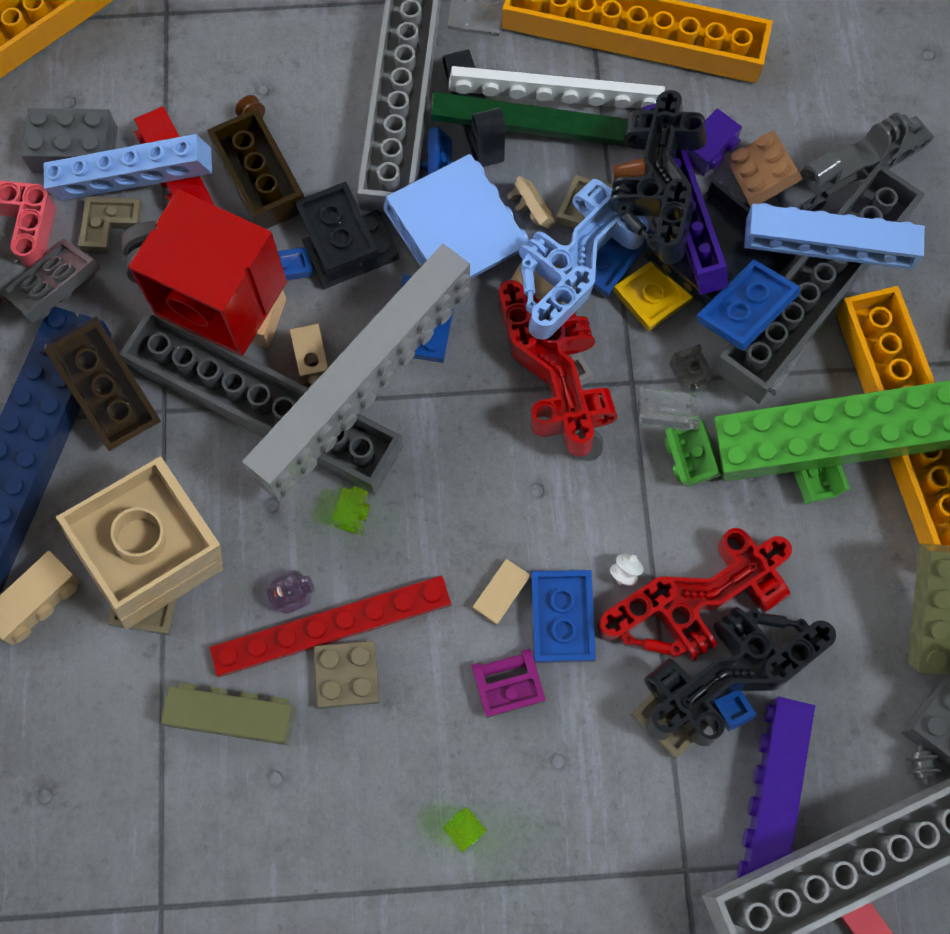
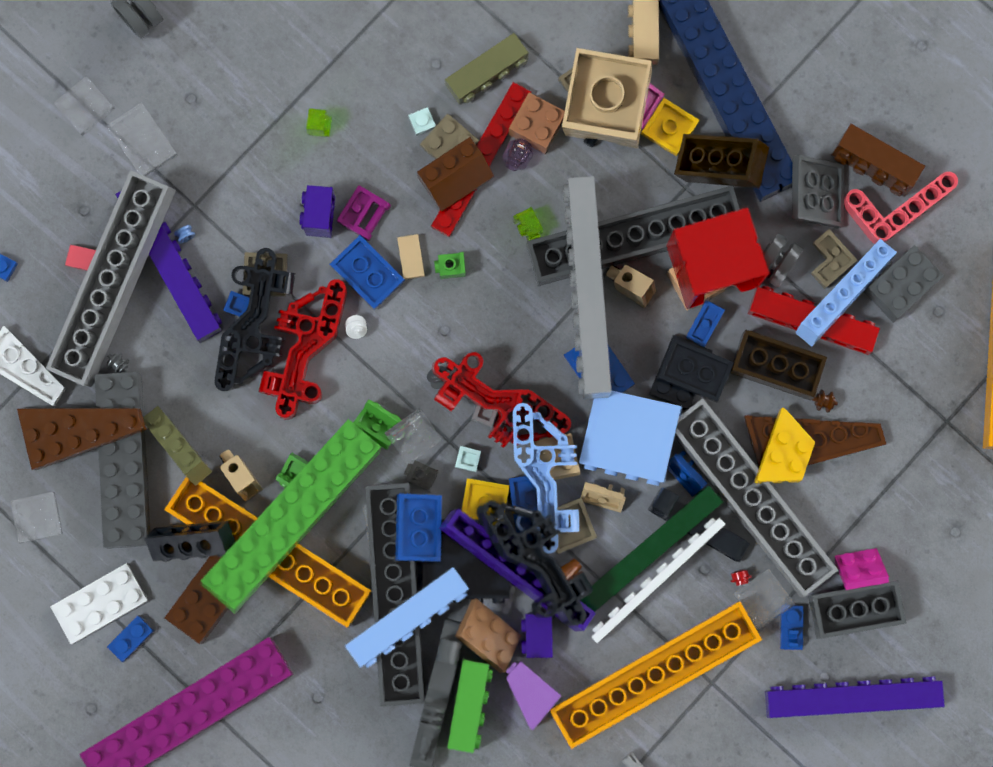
camera: 135 degrees right, 10 degrees up
(108, 467) = (669, 125): none -> yellow plate
(237, 604) = (537, 122): none -> nougat brick
(313, 101) = (831, 438): none -> reddish brown wing
(331, 90) = (786, 452): none -> yellow wing
(352, 726) = (422, 121): none -> light aqua plate
(375, 627) = (455, 174): none -> reddish brown slope
(471, 554) = (457, 270): none -> bright green brick
(478, 41) = (740, 577): none -> red plate
(557, 722) = (318, 211): none -> dark purple brick
(631, 346) = (468, 459): none -> light aqua plate
(727, 843) = (184, 234): none -> medium blue bush
(763, 92) = (531, 693): none -> medium lavender slope
(840, 125) = (468, 706): none -> bright green brick
(885, 515) = (239, 475): none -> tan torso

